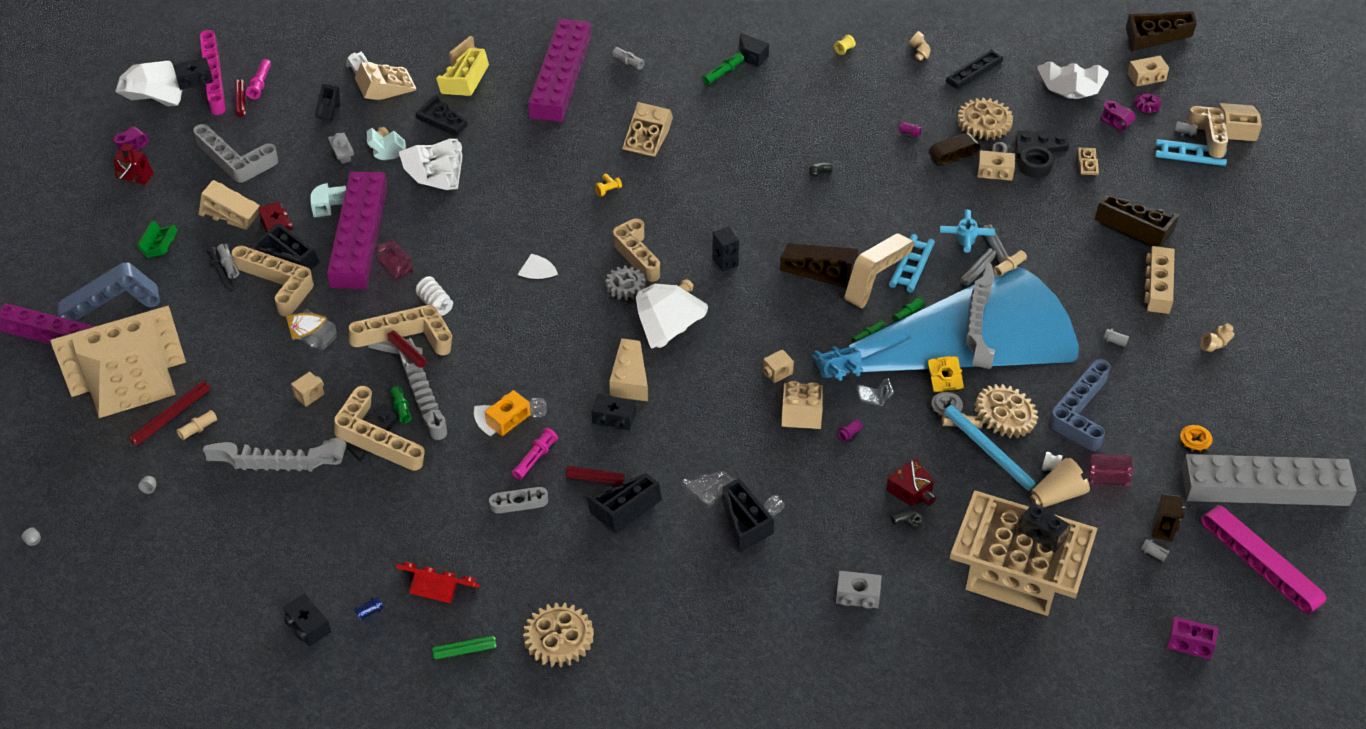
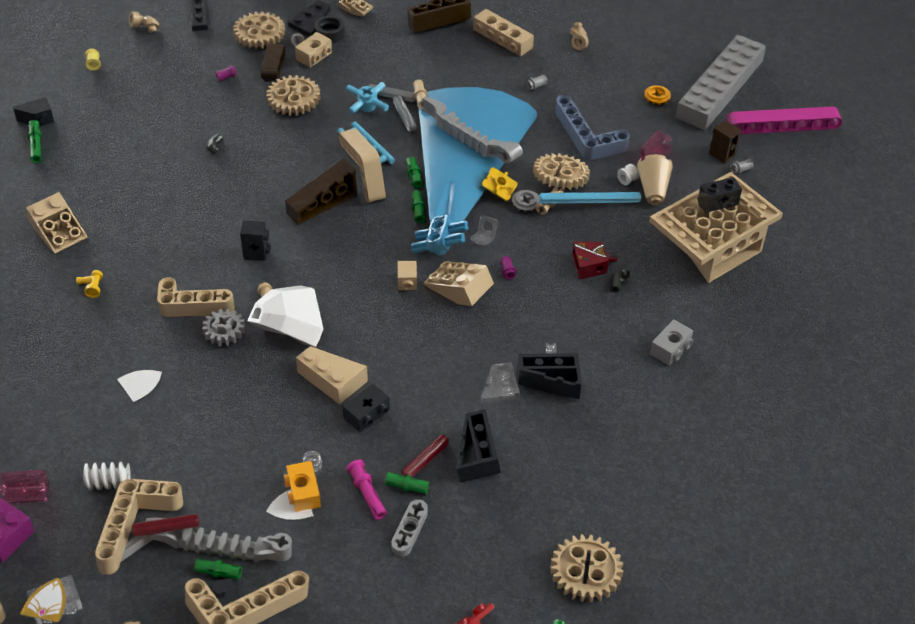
camera: 60 degrees left, 0 degrees up
(559, 476) = (407, 483): none -> green pin
(925, 183) = (293, 95): none -> tan gear
(1192, 638) = (833, 186): magenta brick -> none

